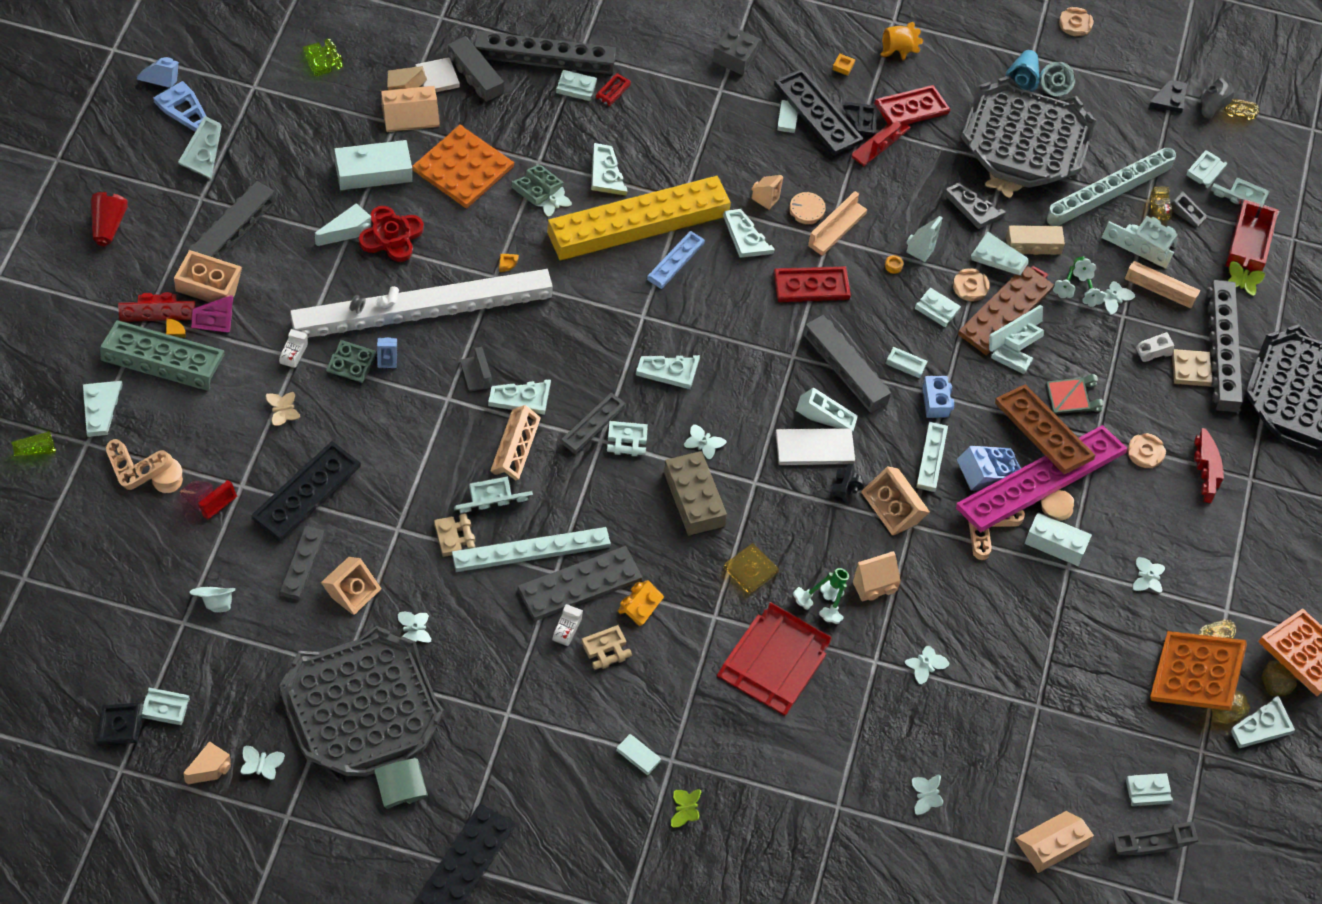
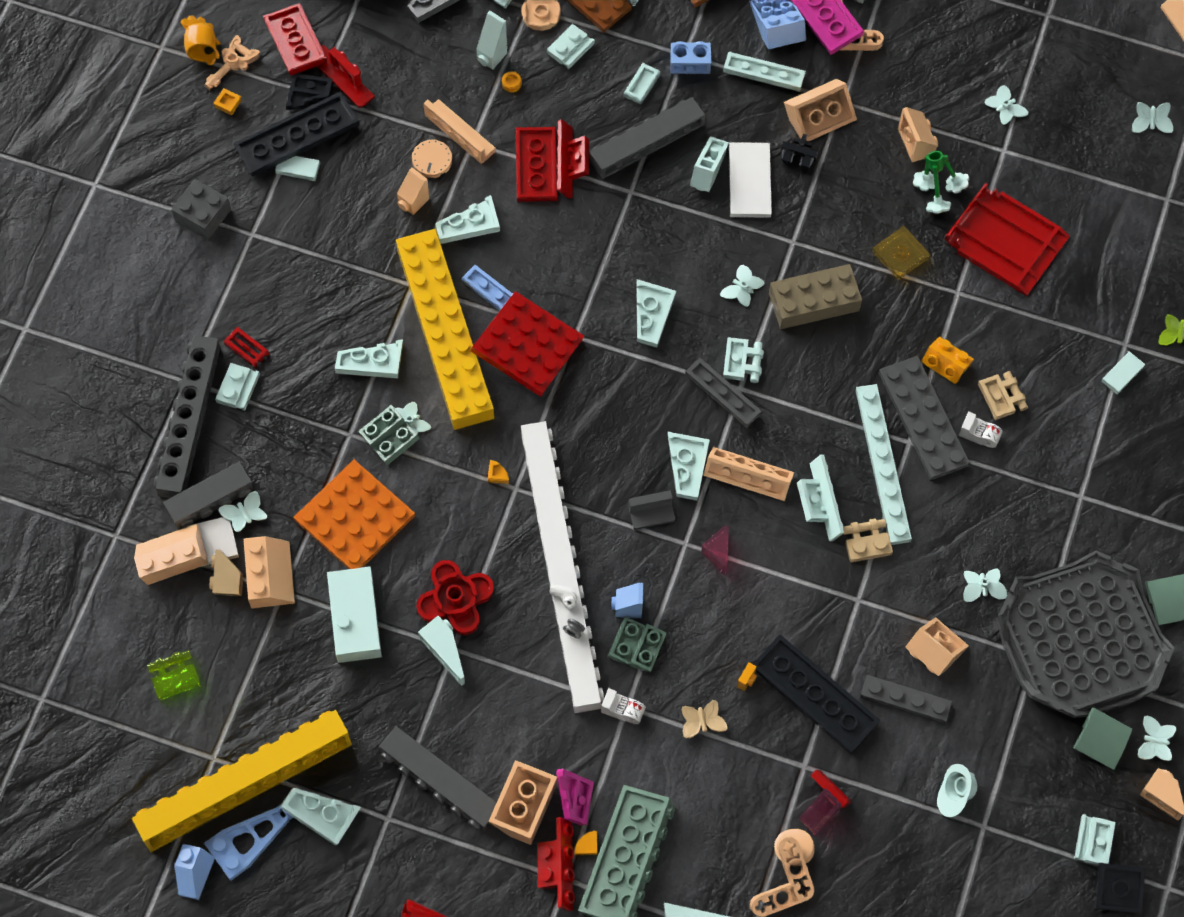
camera: 80 degrees left, 10 degrees up
(230, 97) = (242, 780): none -> yellow brick
(261, 715) = (1103, 738): none -> sand green slope
(320, 438) = (748, 677): none -> light orange plate
(422, 45) = (170, 555): none -> light nougat slope
(440, 418) = (716, 549): none -> clear pink slope
(462, 94) = (245, 513): none -> light aqua piece
(626, 273) = (527, 343): none -> red plate
(817, 304) = (572, 158): none -> red bracket
(885, 67) = (233, 61): none -> light nougat piece

